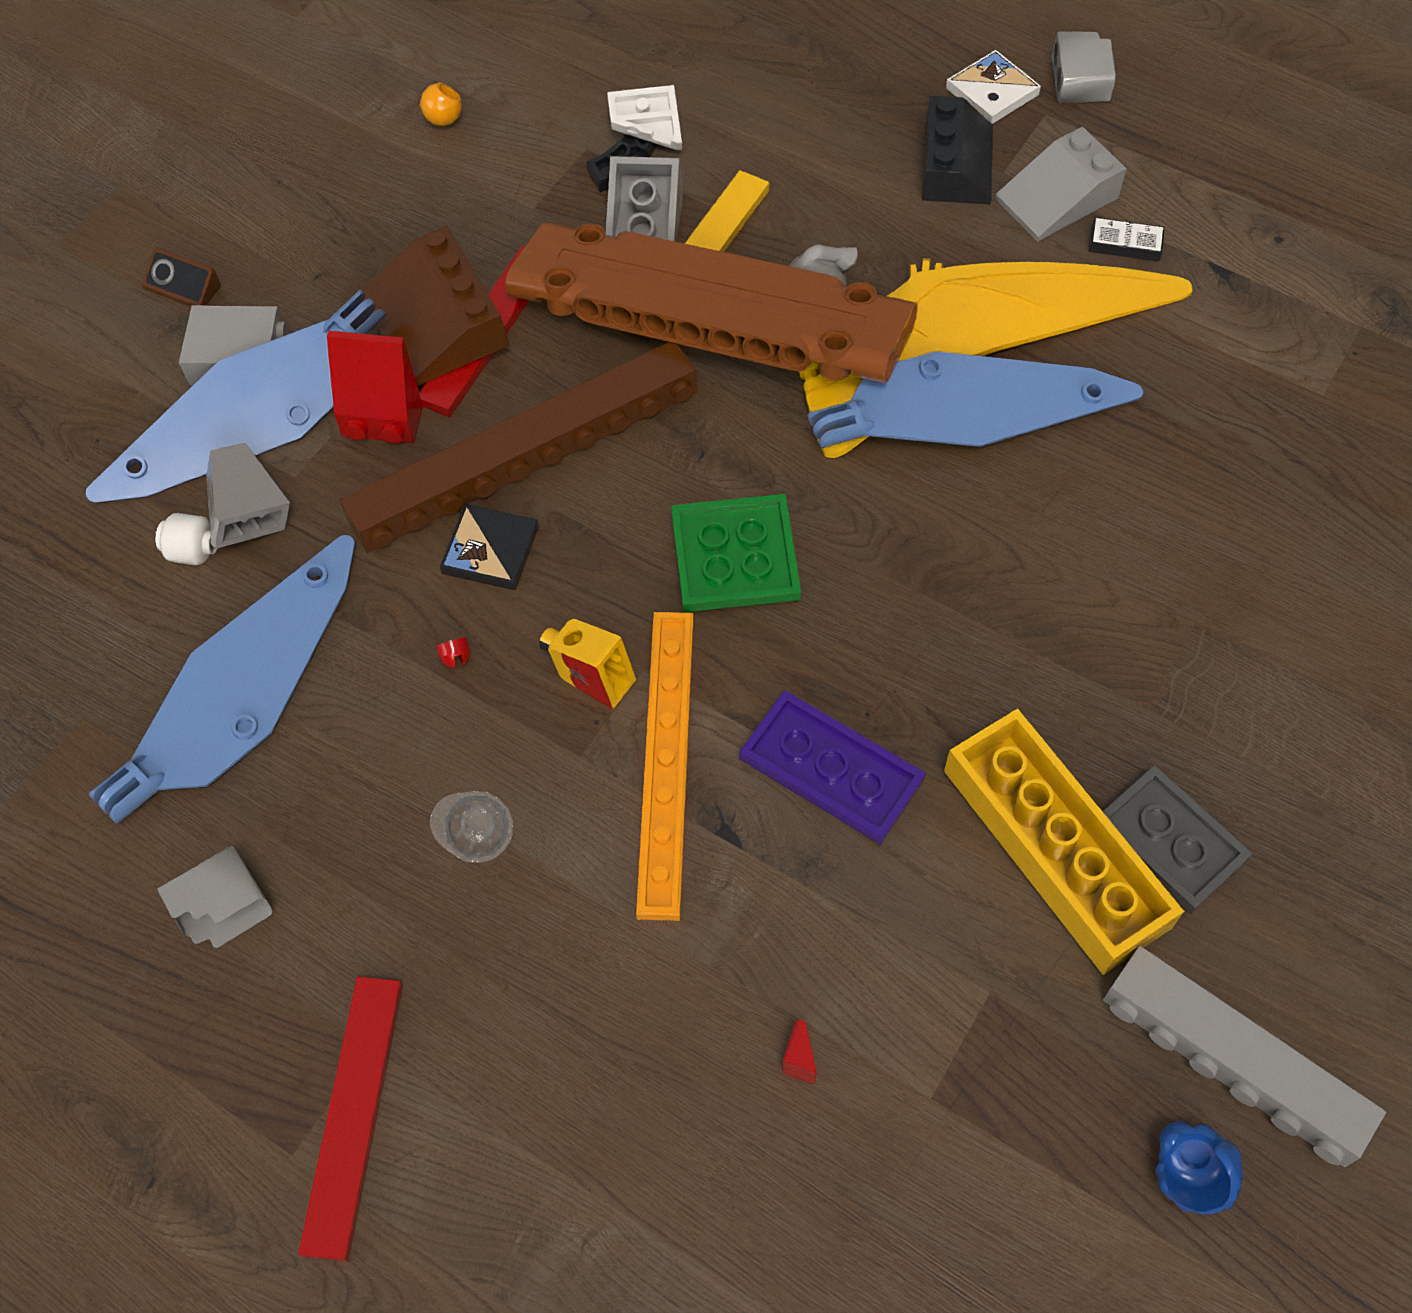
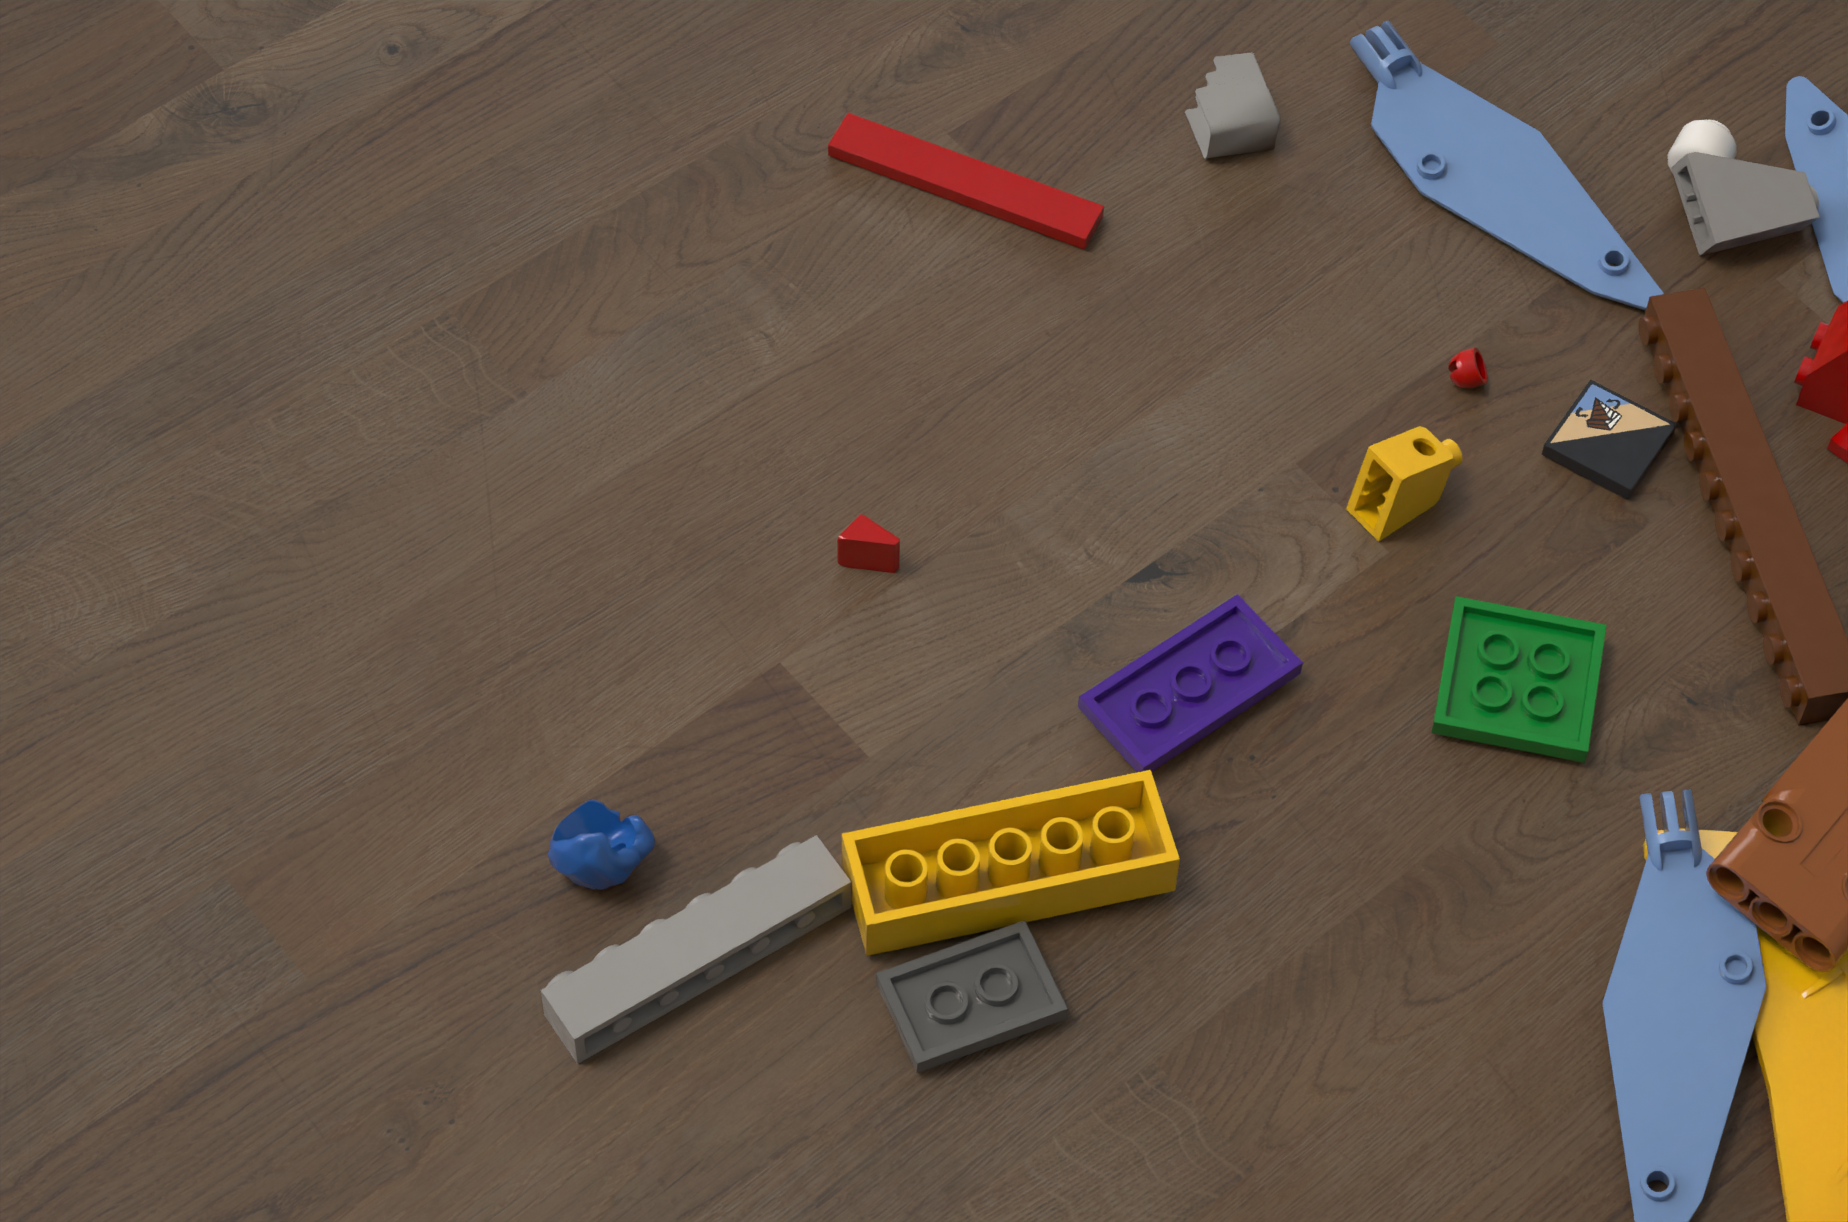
camera: 105 degrees right, 5 degrees down
(472, 825) = (1233, 327): clear piece -> none
(665, 768) = (1262, 537): light orange tile -> none

